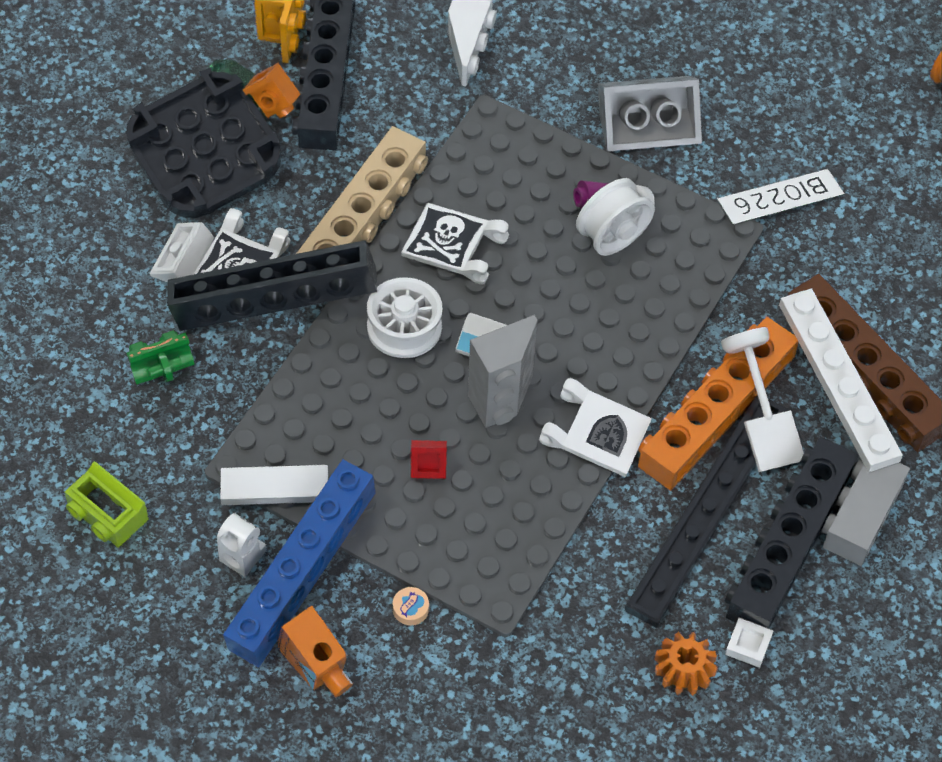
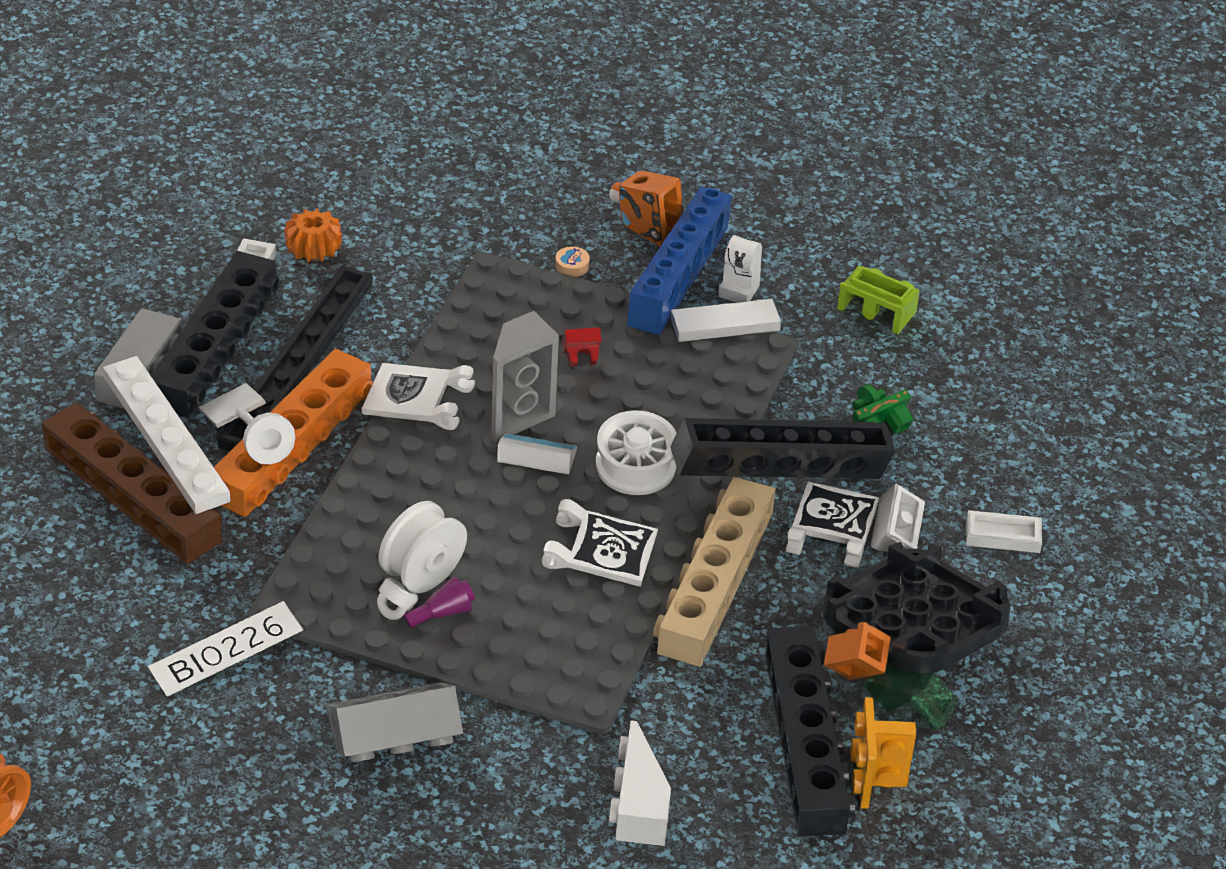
camera: 170 degrees right, 15 degrees down
(91, 233) = (1003, 531): none -> white tile

